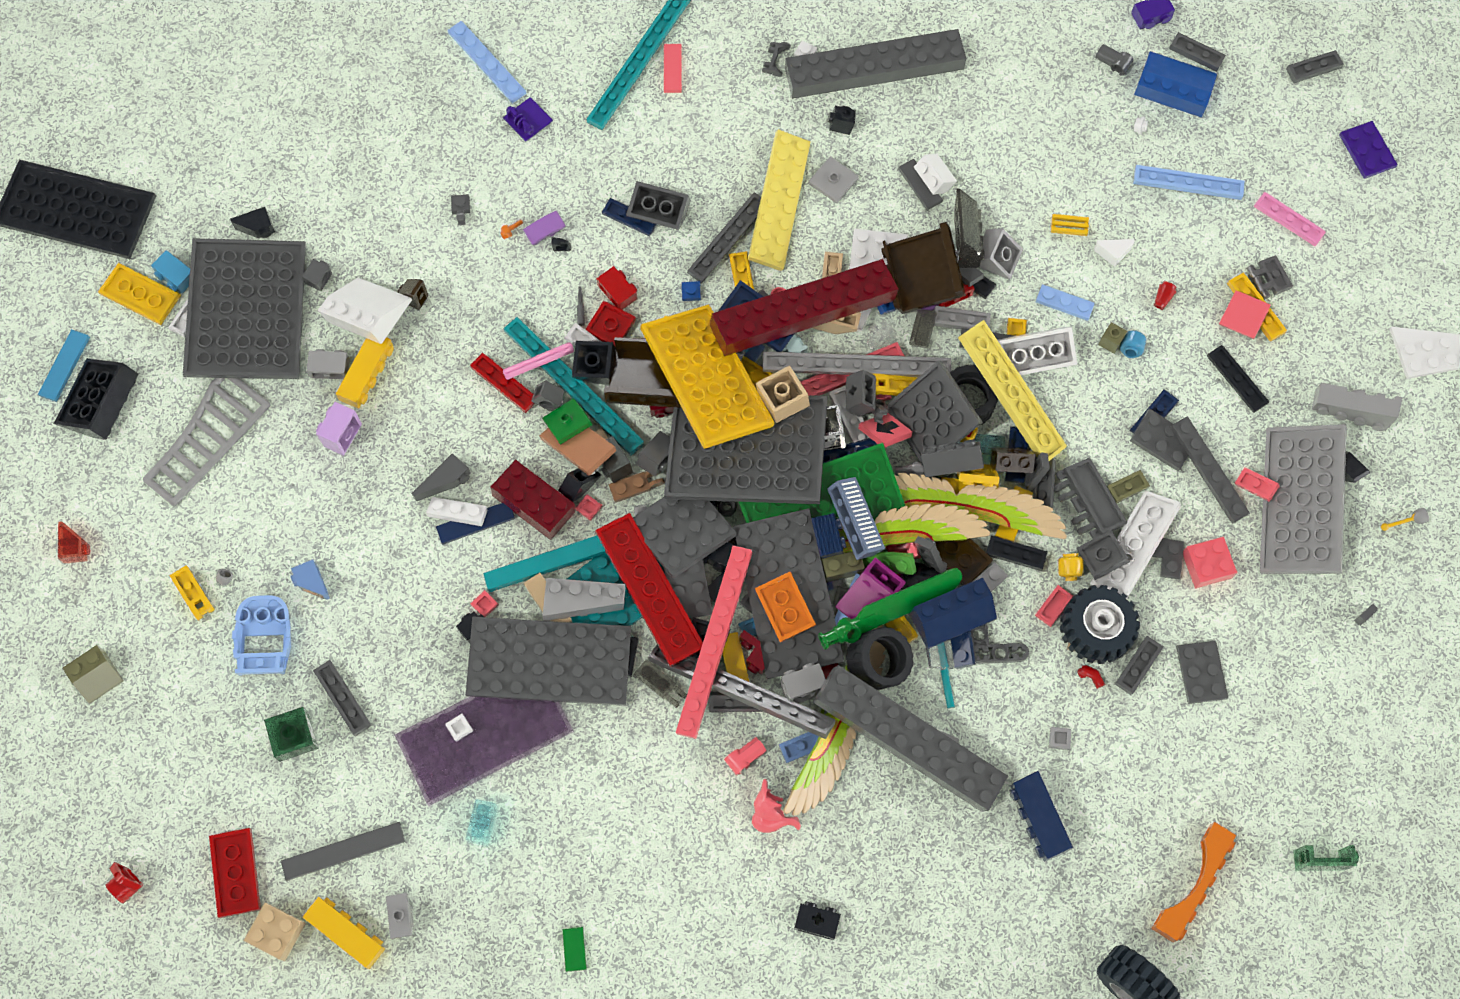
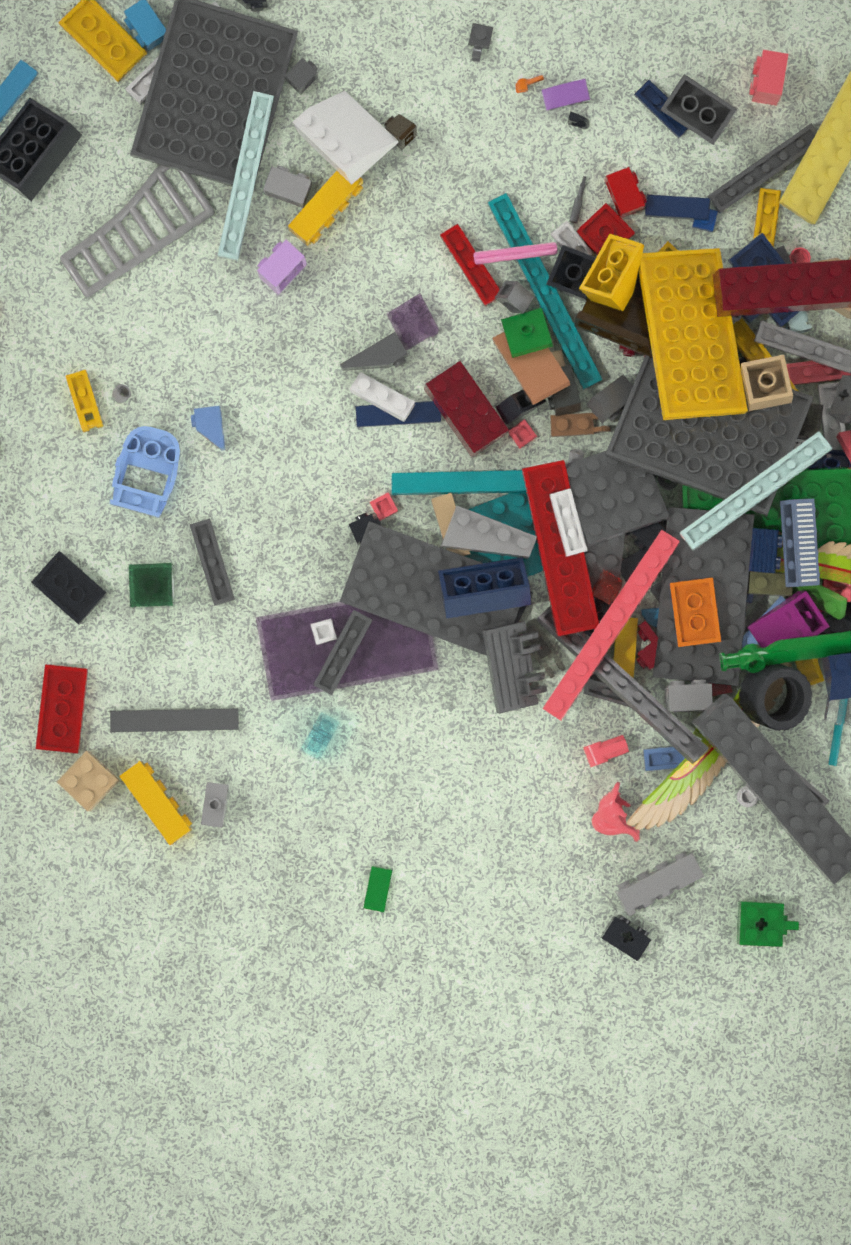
camera: 20 degrees right, 15 degrees up
(215, 760) = (69, 587): none -> black plate
(288, 366) = (245, 176): none -> light aqua tile
(467, 442) = (413, 322): none -> clear purple hinge
(481, 740) = (342, 652): none -> dark grey plate
(592, 642) = (484, 587): none -> dark blue slope
(625, 347) = (614, 272): none -> yellow slope
(635, 707) = (509, 666): none -> dark grey hinge
(649, 564) = (568, 522): none -> white tile
(665, 287) = (677, 207): none -> dark blue tile
(701, 610) = (607, 587): none -> clear red brick
(707, 166) = (769, 78): none -> coral brick
(802, 485) = (755, 490): none -> light aqua tile
(830, 861) = (658, 883): none -> light grey wedge
(884, 758) = (746, 797): none -> white plate
(943, 857) = (775, 924): none -> green hinge

